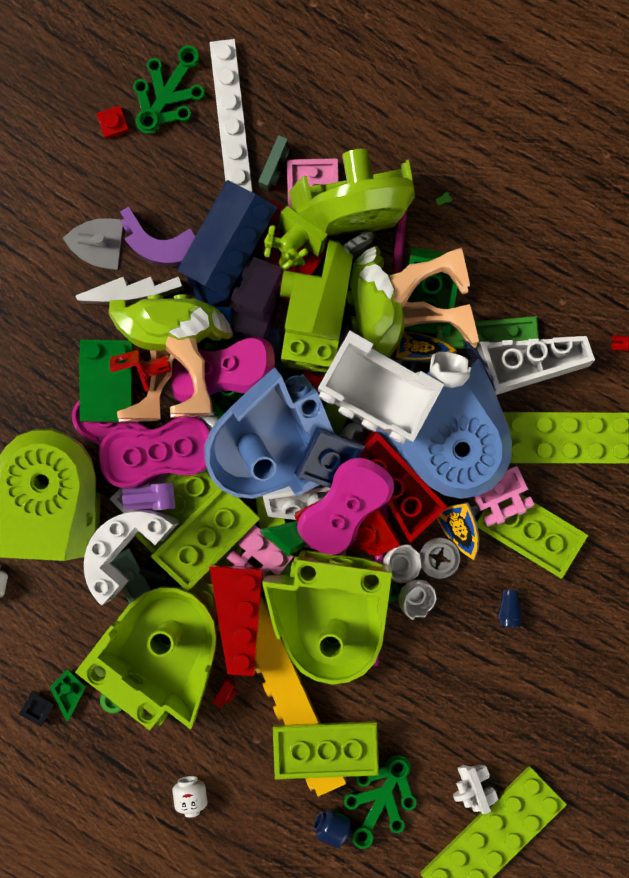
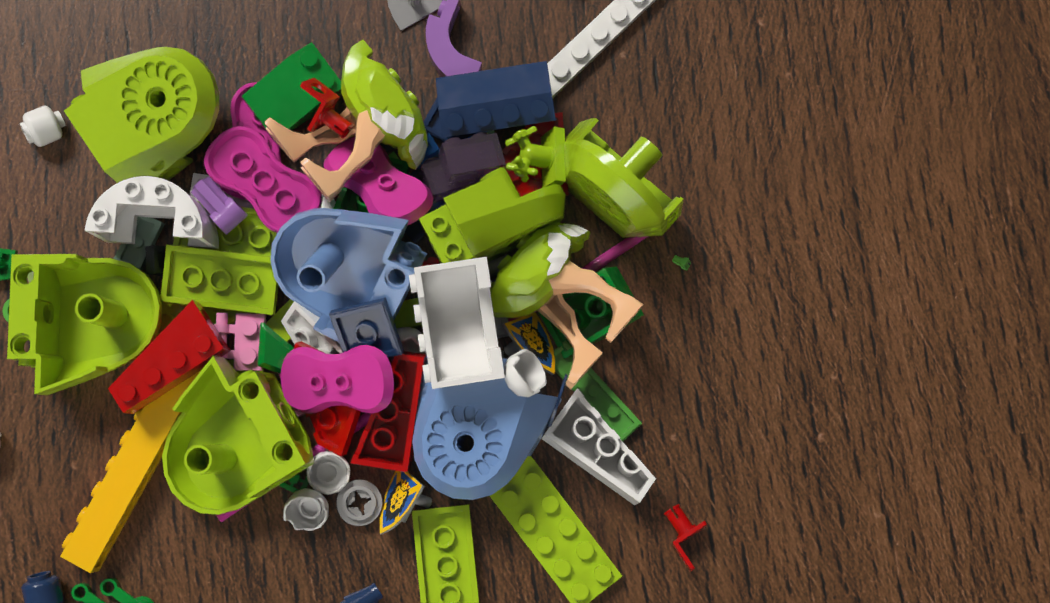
camera: 50 degrees right, 5 degrees down
(121, 290) = (385, 52): white slope -> none
(225, 693) = (95, 404): red plate -> none
(278, 154) = (585, 95): sand green plate -> none
(317, 172) = (612, 129): bright pink plate -> none
(325, 750) = (106, 531): lime tile -> none
(360, 243) = (581, 217): light grey gear -> none
(506, 488) = (467, 512): bright pink plate -> none

